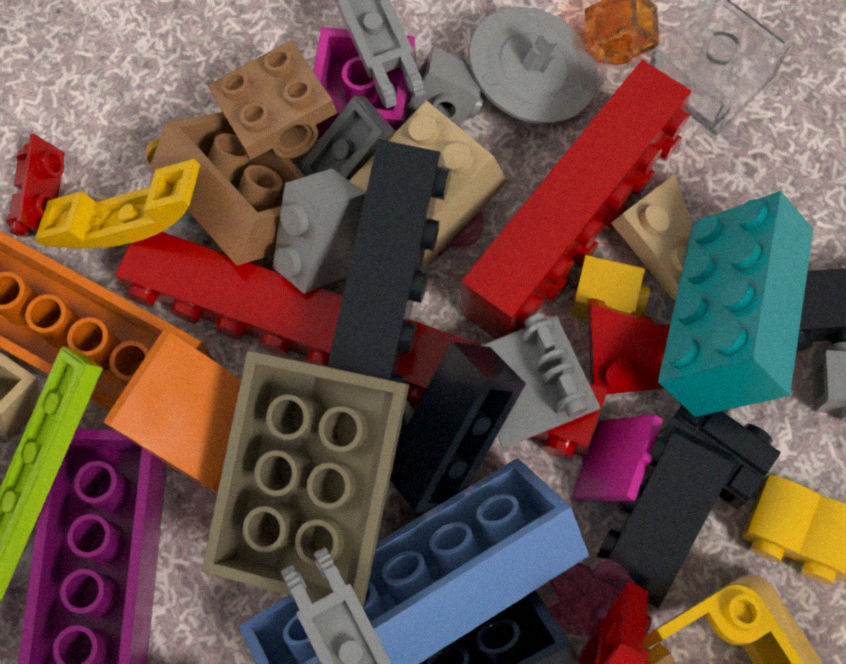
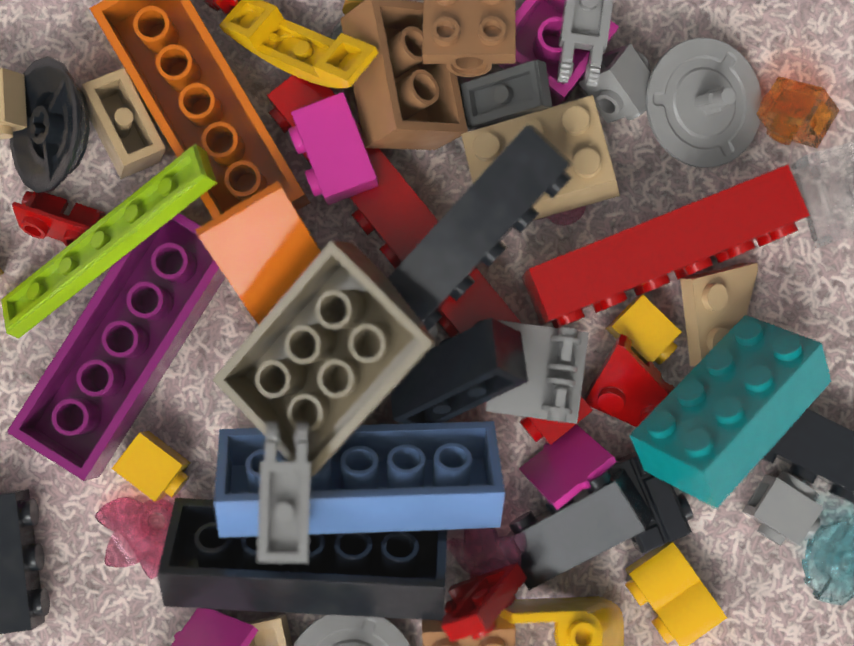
camera: 25 degrees right, 15 degrees up
(207, 282) = (334, 149): none -> dark pink brick
(317, 229) = (443, 156): light grey brick -> none

